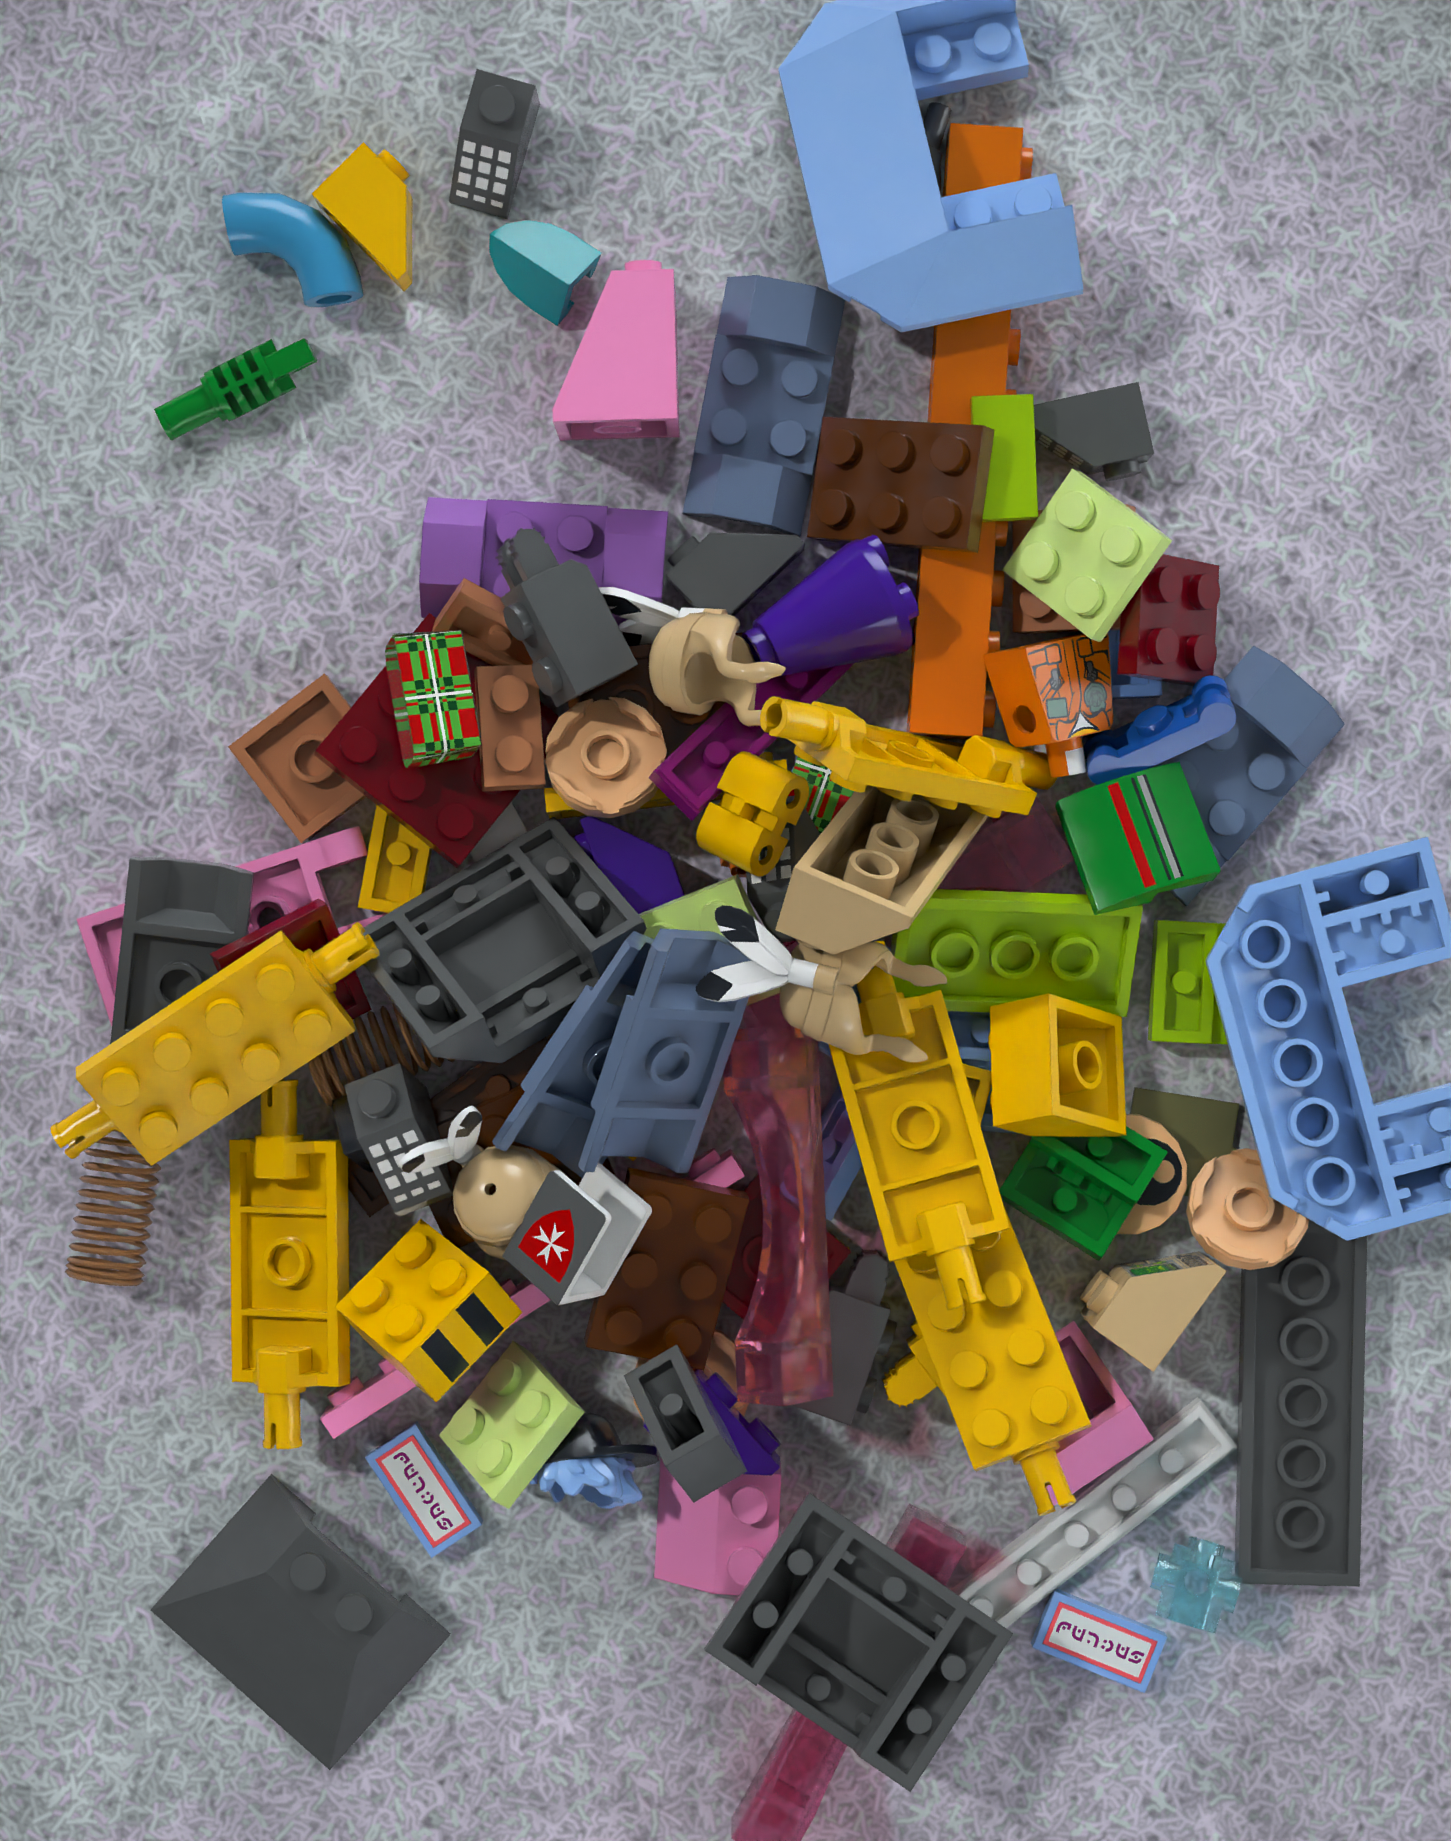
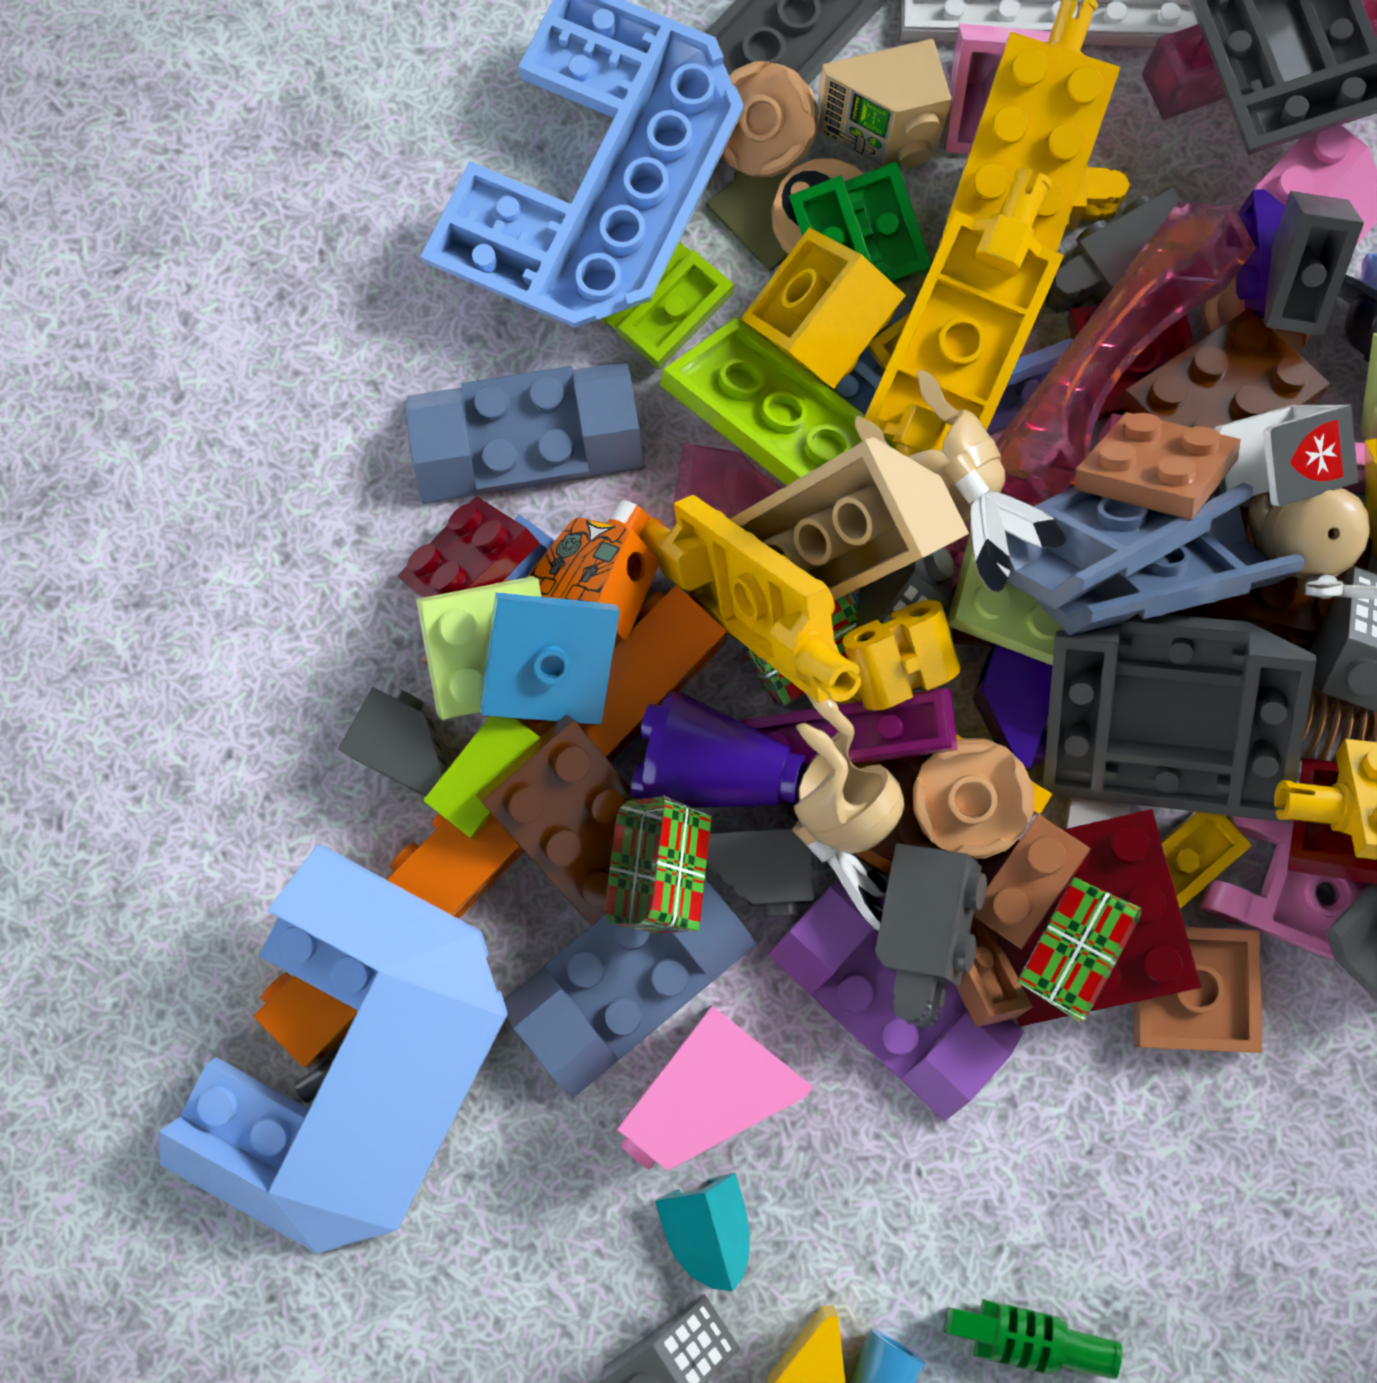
camera: 140 degrees left, 10 degrees down
(673, 1133) = (1158, 464): none -> nougat plate
(806, 493) = (658, 866): none -> piece
(1026, 580) = (548, 658): none -> dark azure plate
(1137, 838) = (626, 419): green slope -> none
(1161, 732) = (541, 482): blue plate -> none

